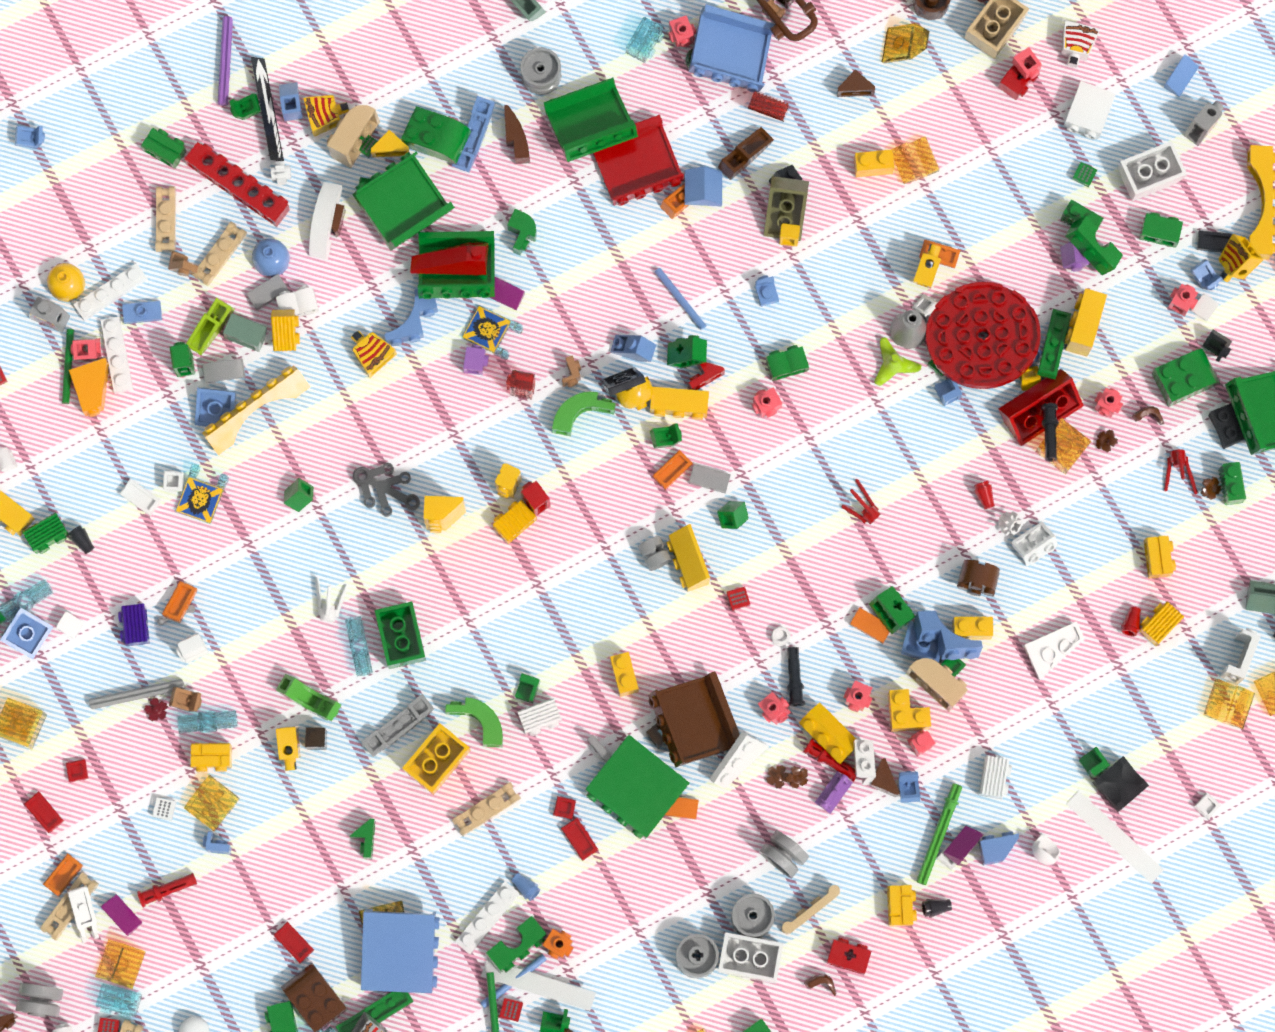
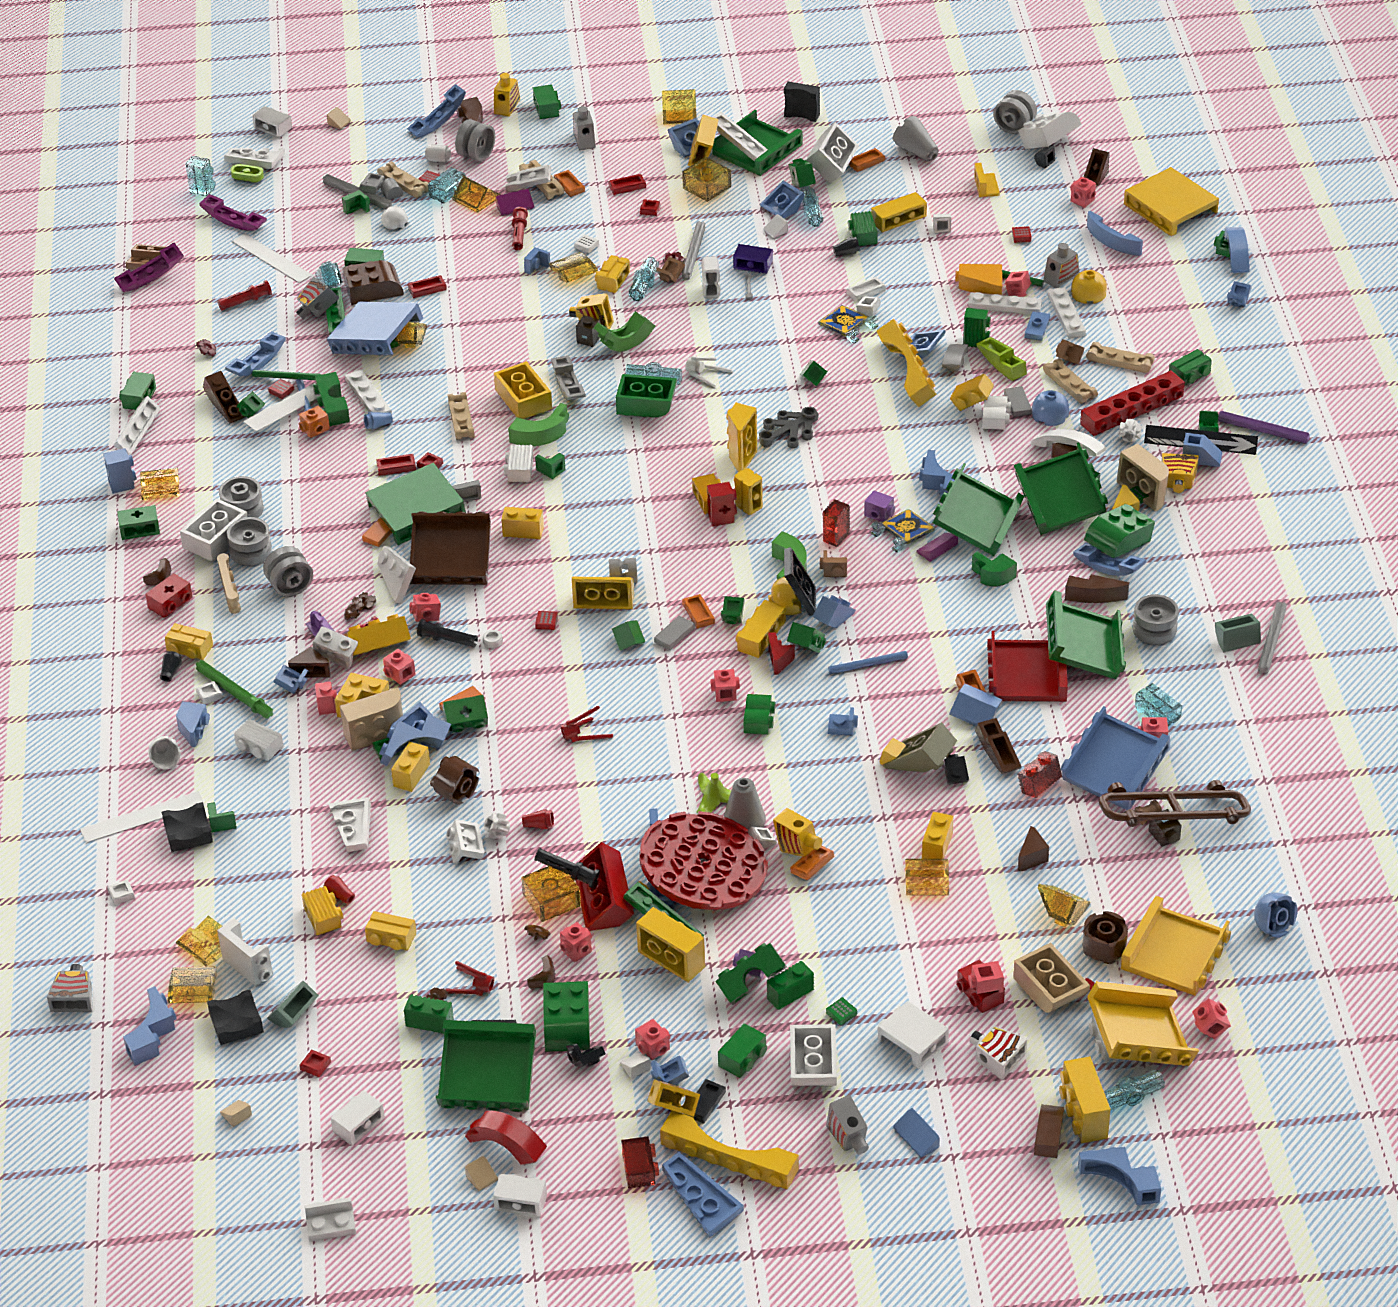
camera: 115 degrees right, 35 degrees down
(179, 602) = (758, 288): orange tile -> none
(245, 332) = (987, 366): sand green brick -> none
(366, 832) = (481, 341): green slope -> none
(372, 352) = (919, 441): torso -> none
(459, 259) = (984, 510): red wedge -> none
(962, 844) = (211, 696): magenta slope -> none

